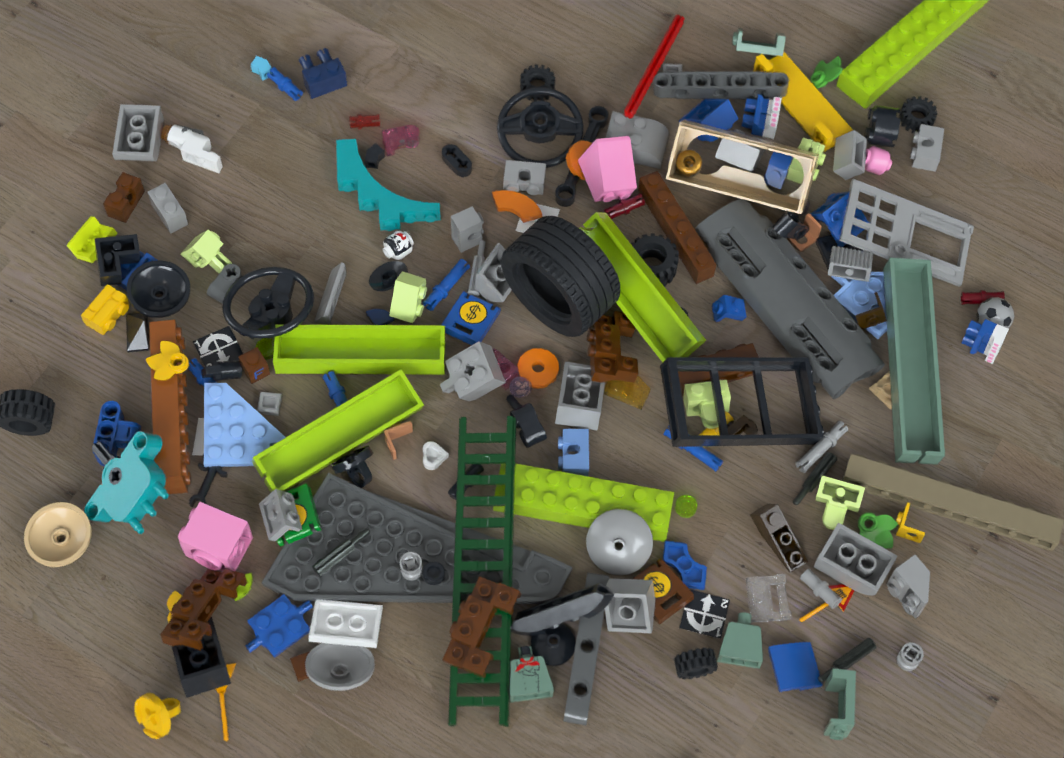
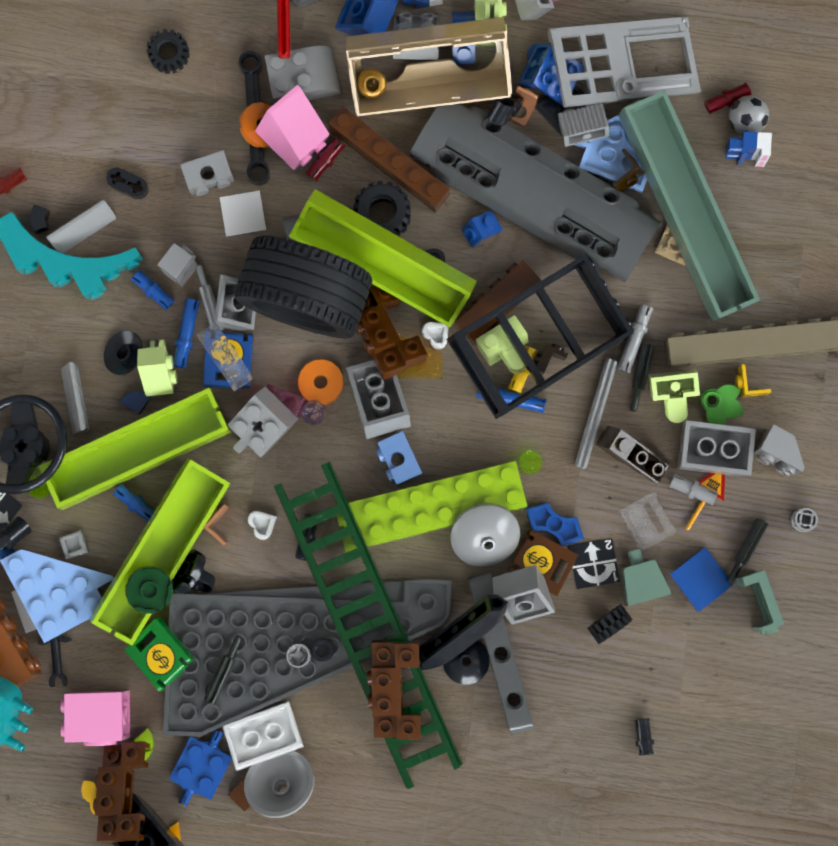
camera: 20 degrees left, 20 degrees up
(254, 365) = (38, 514): reddish brown brick -> none
(279, 514) = (147, 664): light grey bracket -> none
(313, 454) = (148, 589): none -> dark green tile
(398, 245) = (115, 312): white head -> none
(399, 138) = (56, 184): clear pink leg -> none
(405, 174) = (81, 227): none -> light grey slope
(436, 242) = (152, 290): none -> blue pin
(469, 312) = (224, 356): none -> clear slope
(517, 204) = (214, 205): orange tile -> none
(526, 123) = (179, 113): black piece -> none
(529, 677) = (459, 707): sand green torso -> none
(531, 429) = (336, 448): black beam -> none
(652, 373) = (436, 333): none -> white tile
(761, 491) = (595, 413): none -> light grey axle

